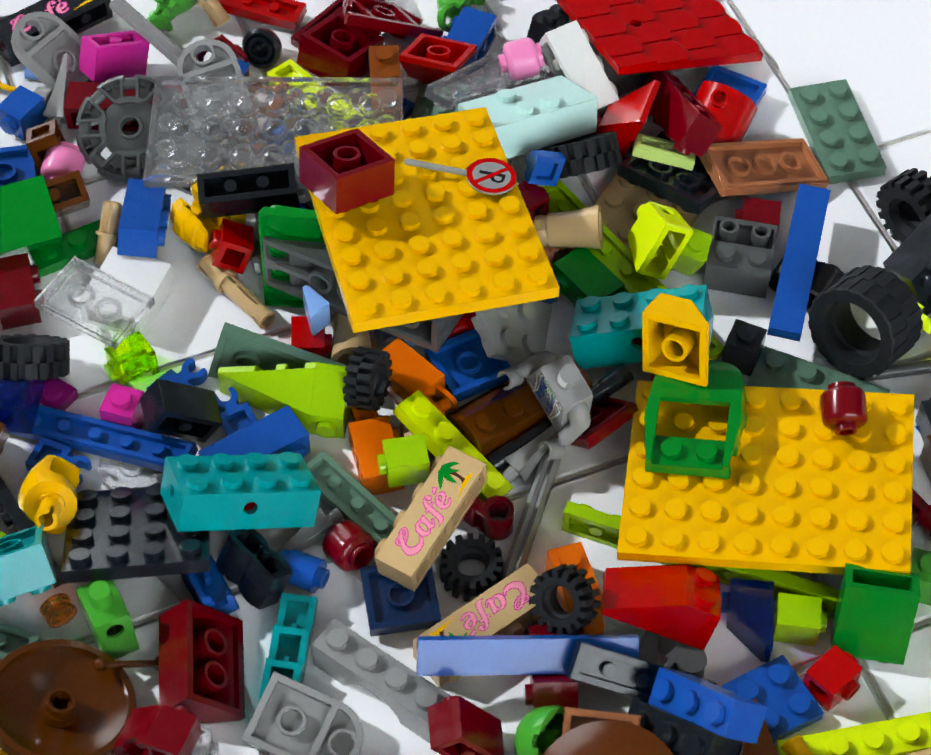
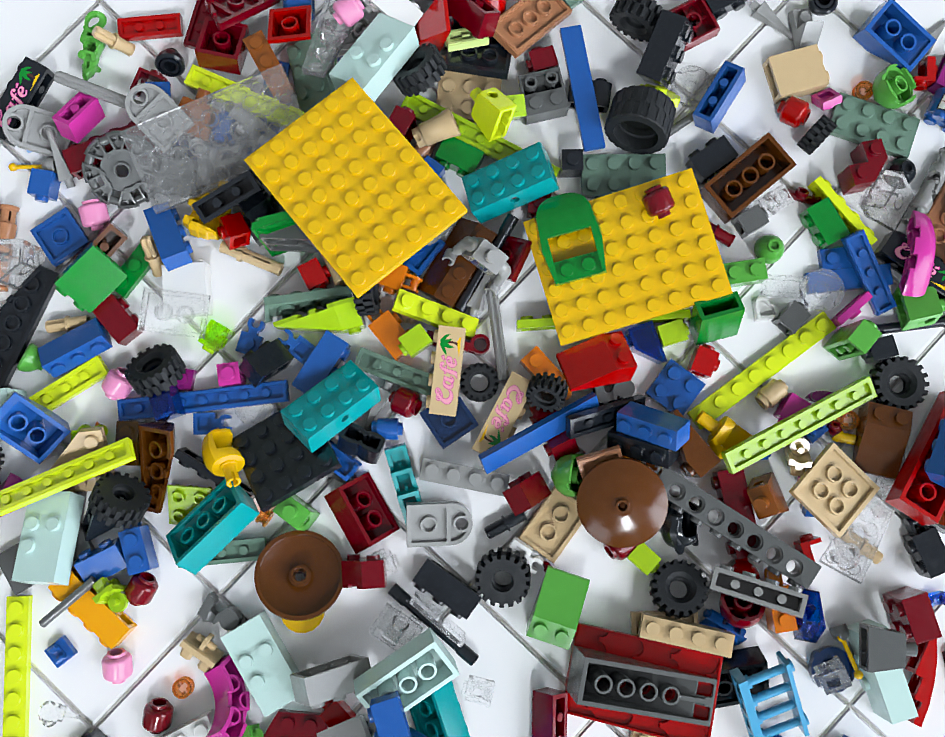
camera: 25 degrees left, 30 degrees up
(42, 137) = (71, 204): reddish brown panel -> none
(101, 664) = (308, 540): reddish brown hinge -> none
(316, 310) = (312, 260): light blue slope -> none
(346, 170) = (297, 185): dark red brick -> none
(484, 175) = (383, 139): piece -> none
(543, 167) = (403, 95): blue tile -> none
(675, 340) = (544, 199): yellow slope -> none

